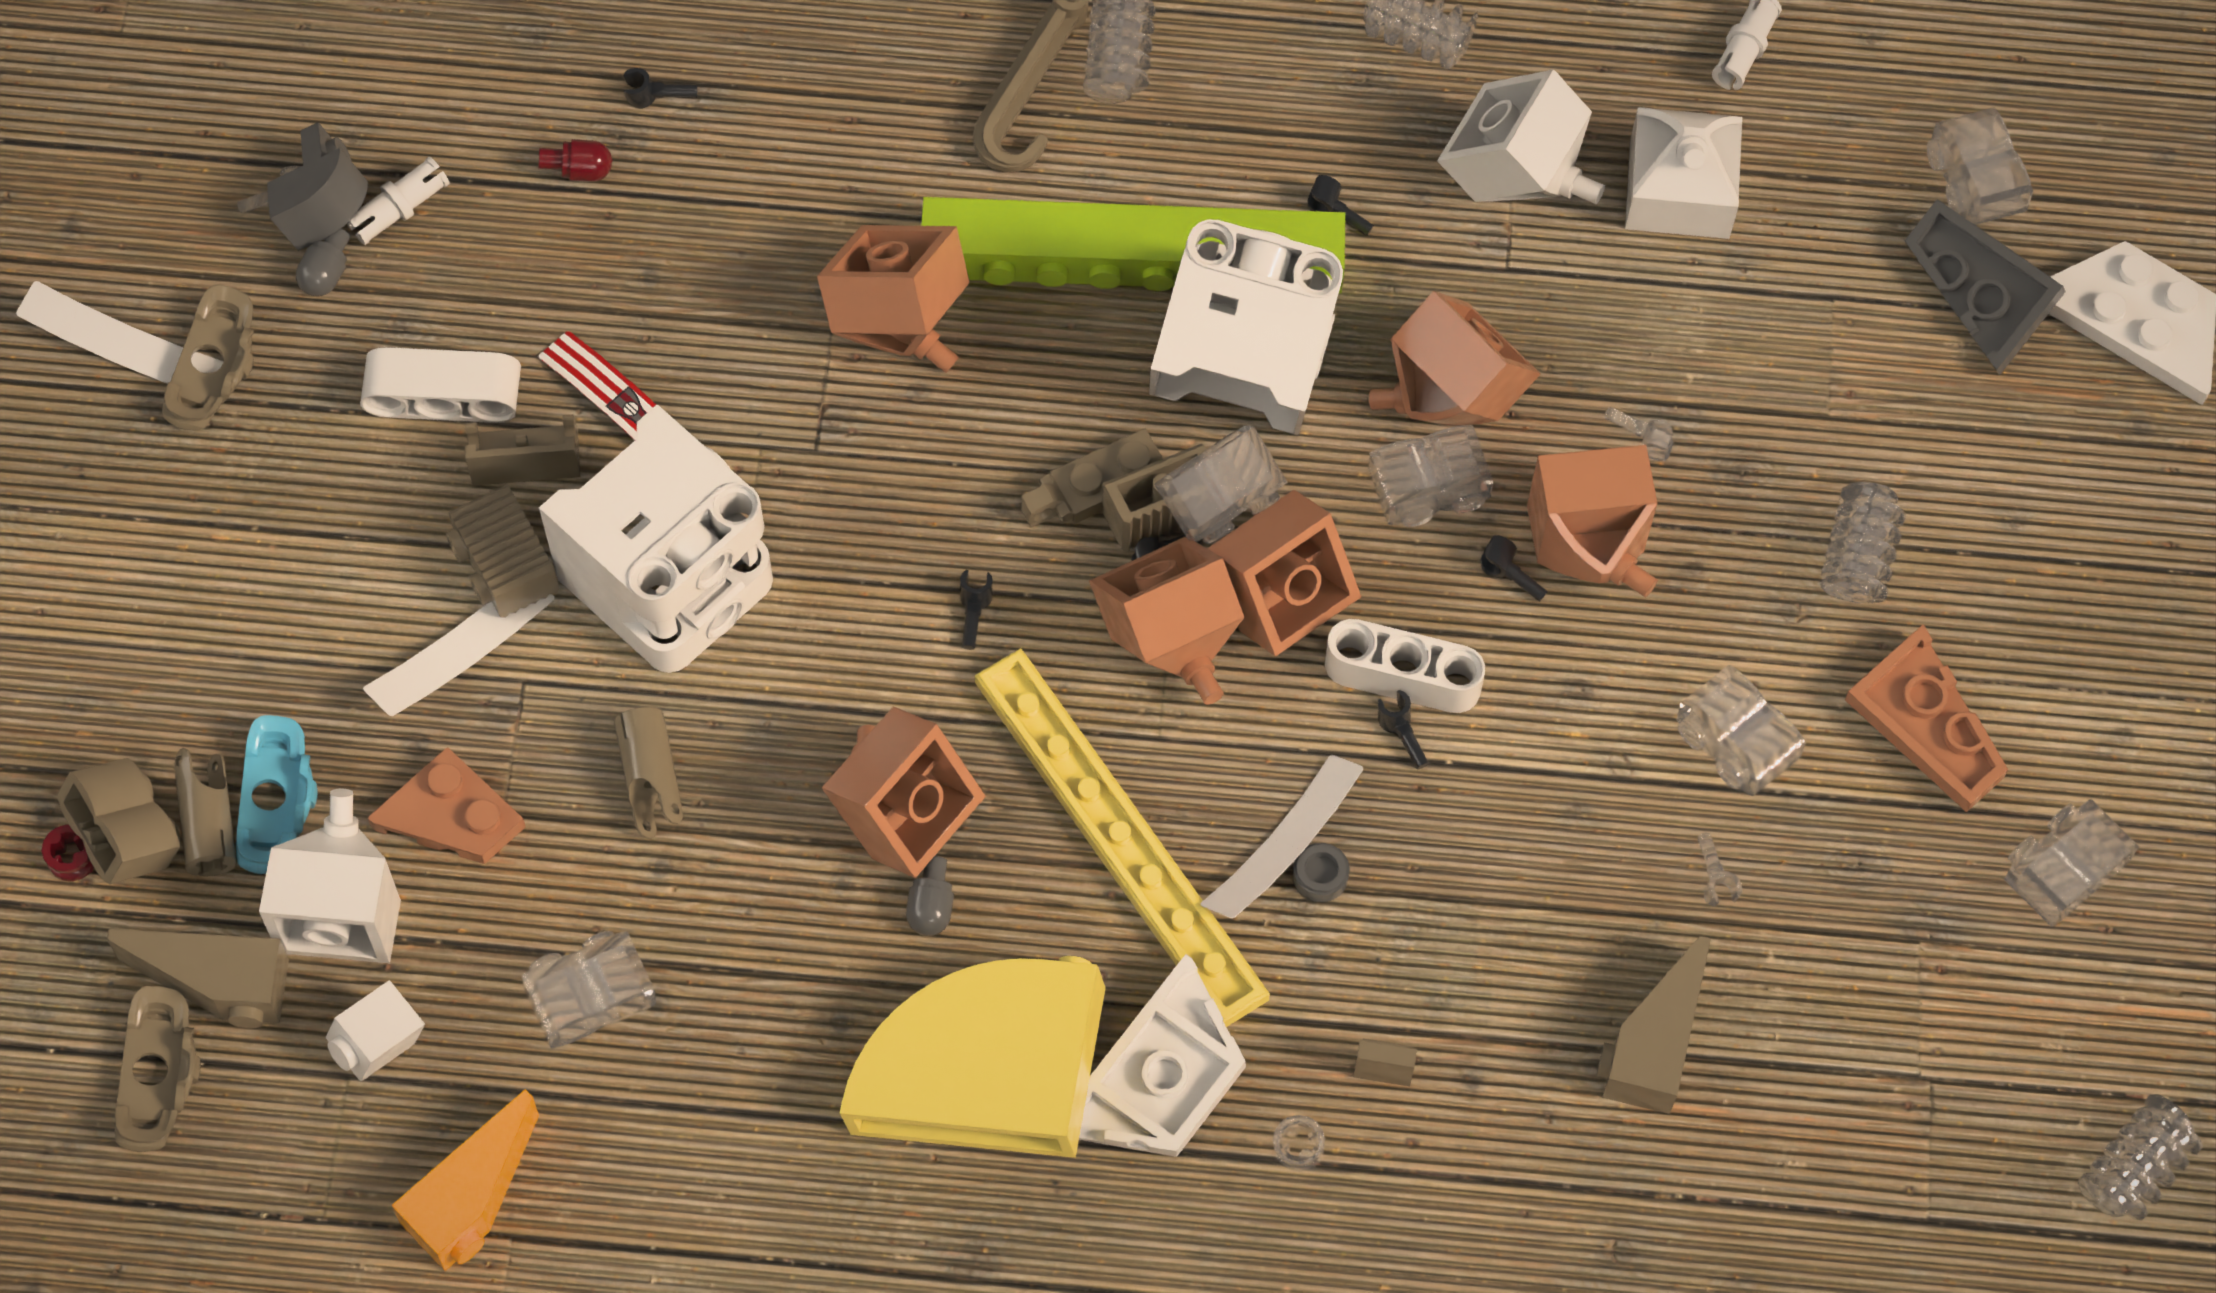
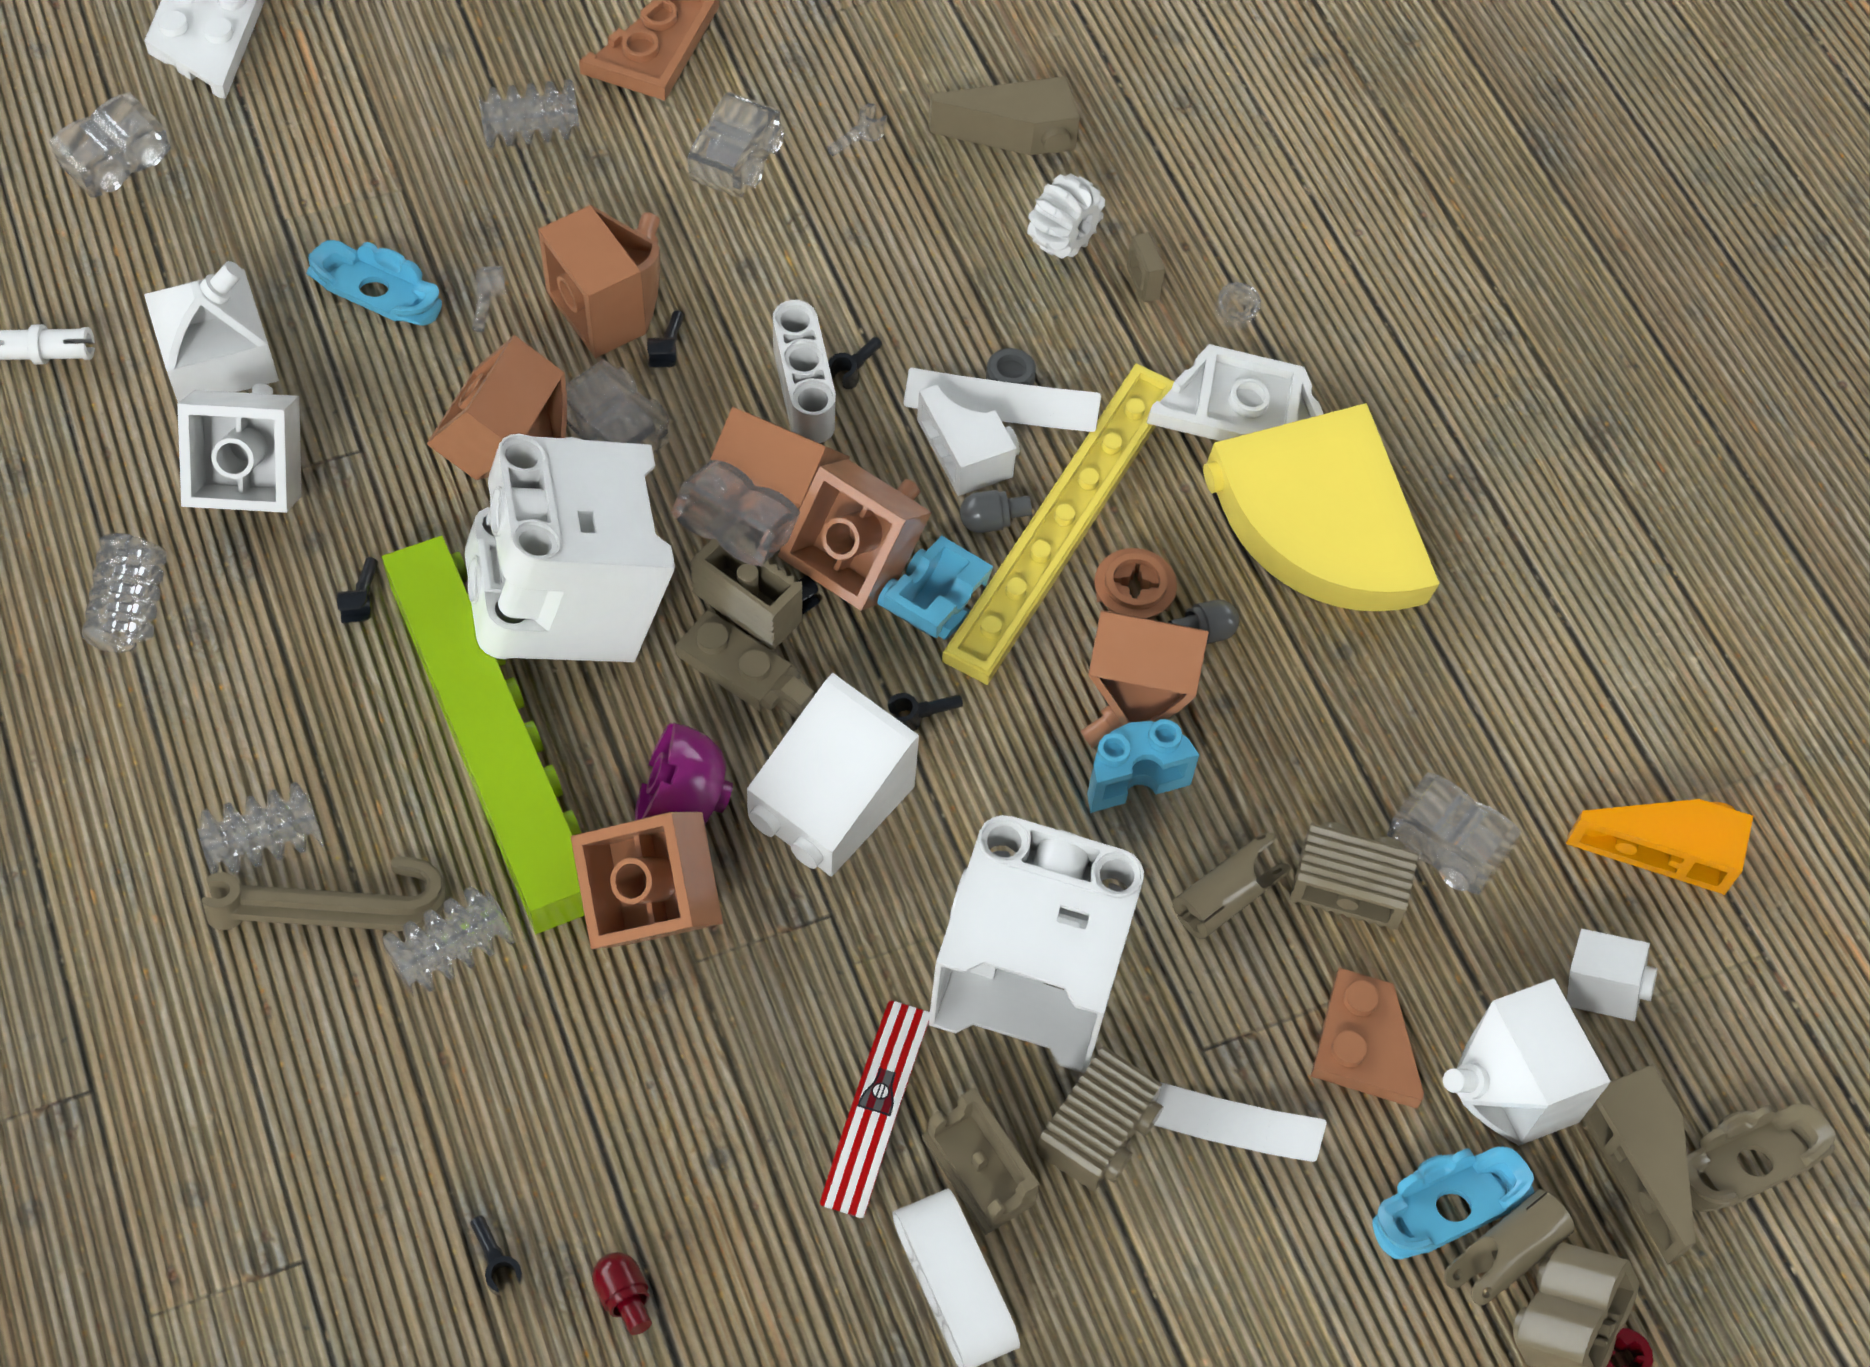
camera: 120 degrees left, 5 degrees down
(599, 877) = (1354, 875): none -> dark tan brick
(815, 745) = (1144, 755): none -> medium azure cylinder
(928, 485) = (834, 776): none -> white slope
(939, 143) = (447, 938): none -> clear piece
(988, 366) = (684, 775): none -> magenta cylinder
(1001, 833) = (1155, 579): none -> nougat gear
(1079, 658) = (936, 588): none -> medium azure cylinder
(1157, 768) = (992, 510): none -> dark grey cylinder
(1244, 771) = (968, 443): none -> white arch
(1481, 1001) = (1066, 215): none -> white gear
(1728, 317) = (347, 270): none -> medium azure piece
(1984, 282) = (231, 113): dark grey wing -> none

